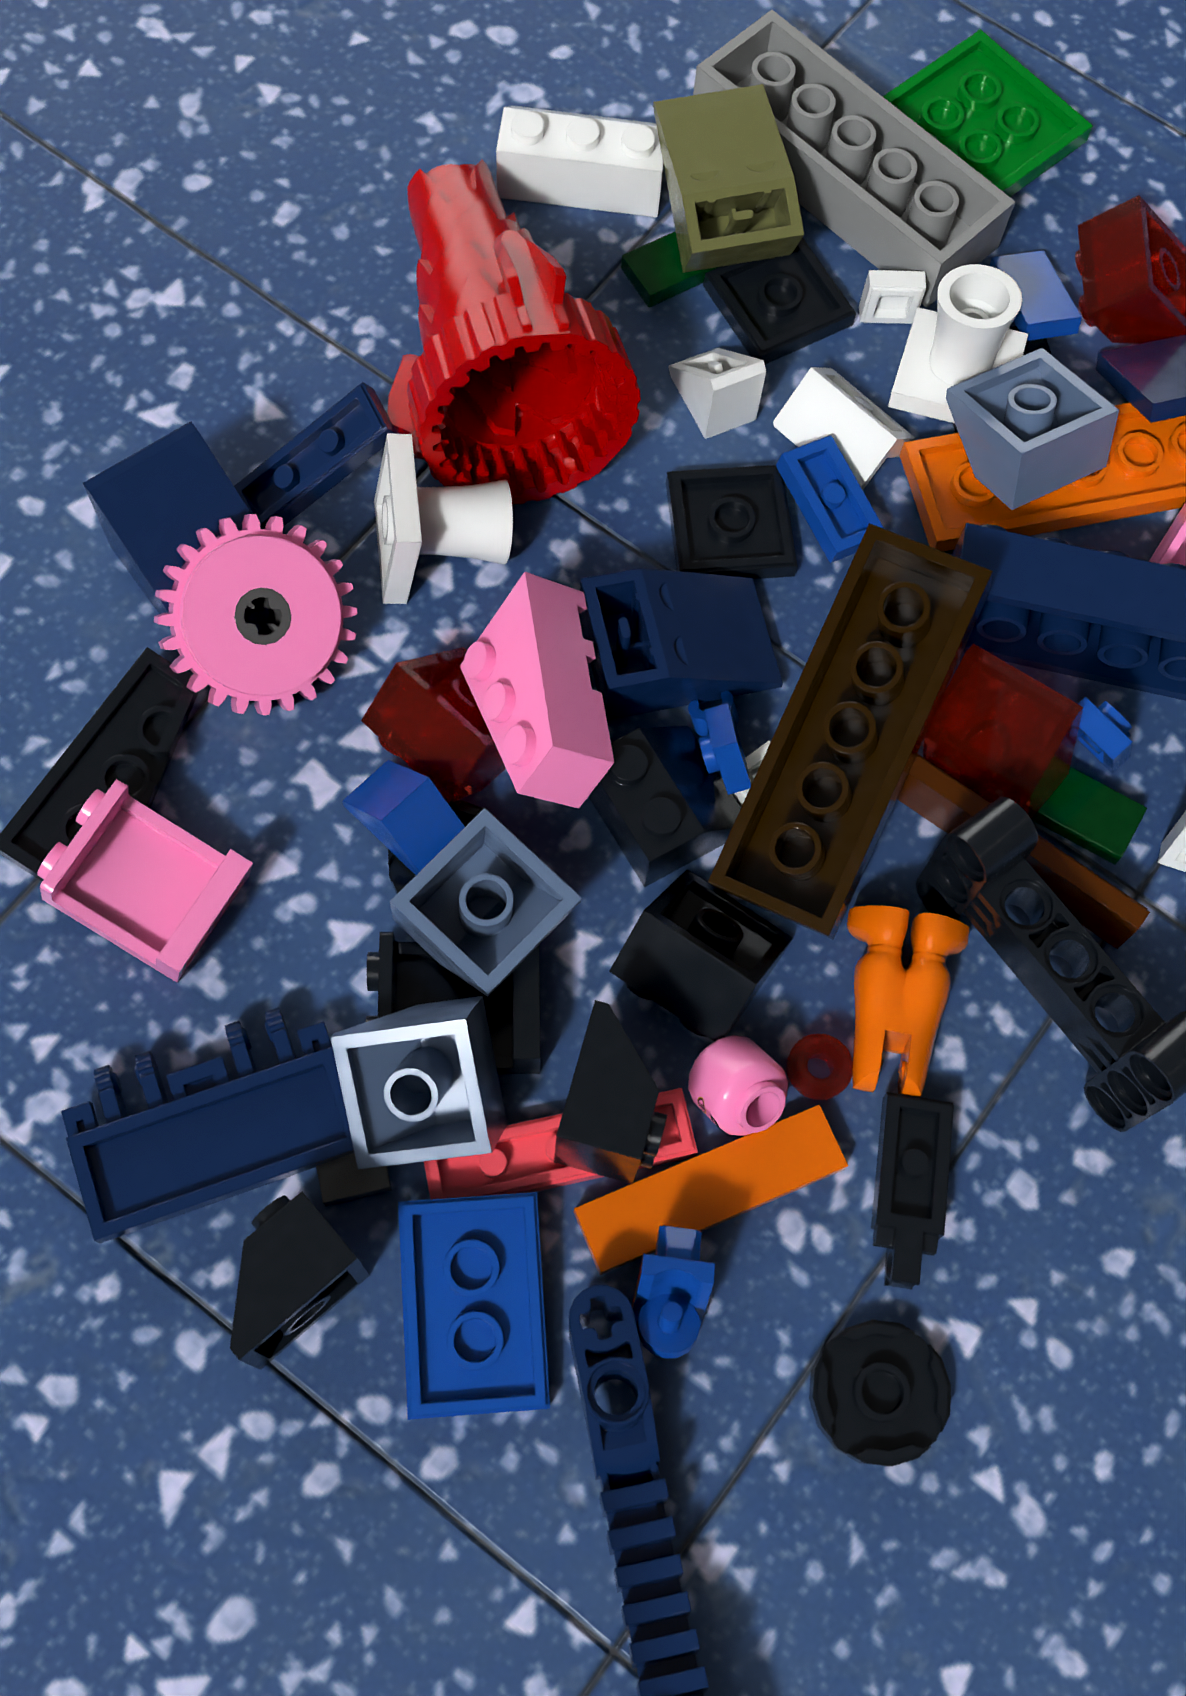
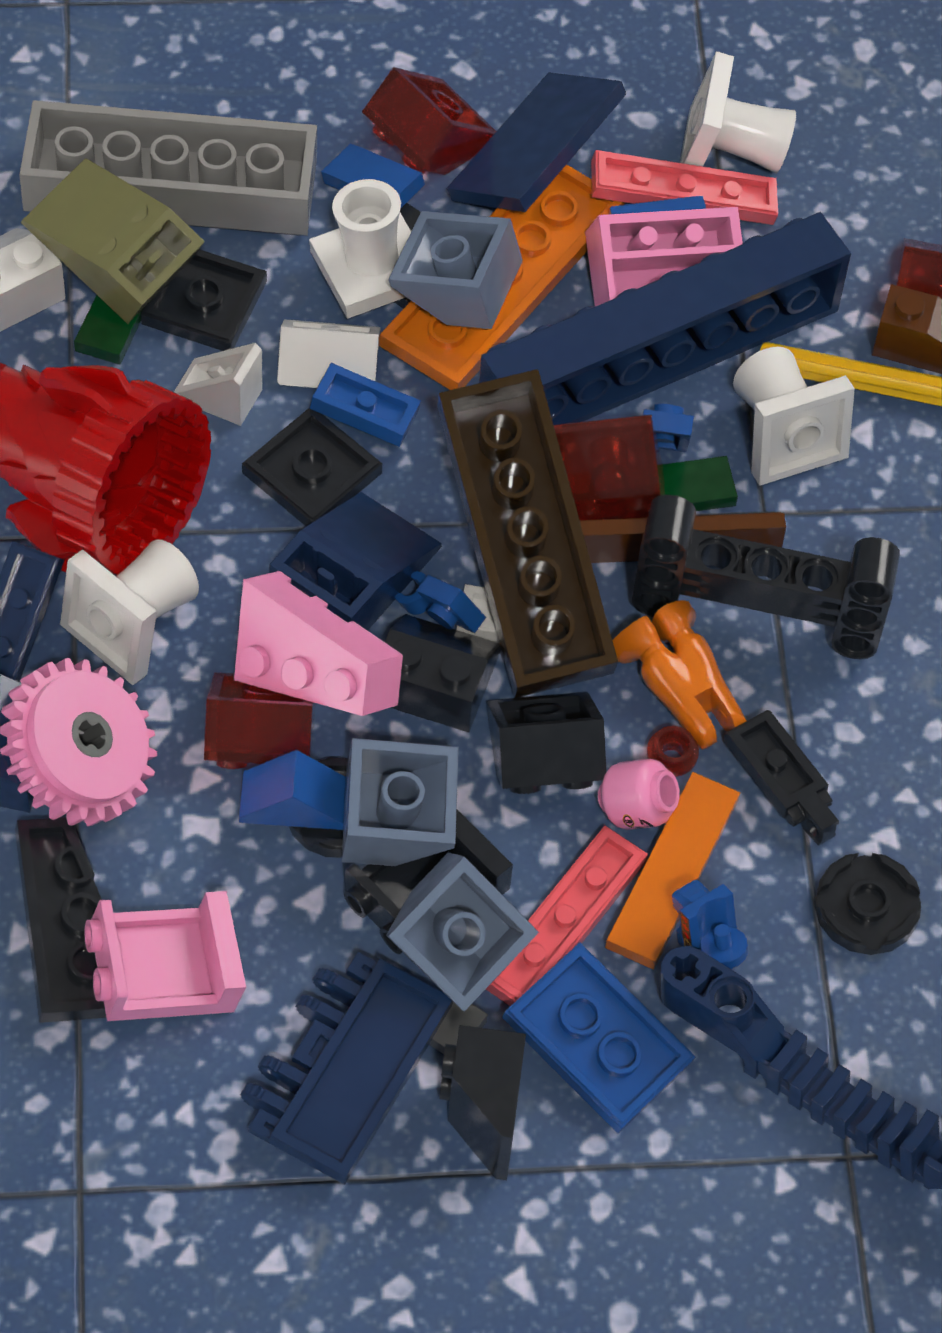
camera: 40 degrees left, 10 degrees down
(610, 1105) = (580, 850): black slope -> none
(891, 296) = (282, 244): white tile -> none
(992, 113) = (231, 71): green plate -> none

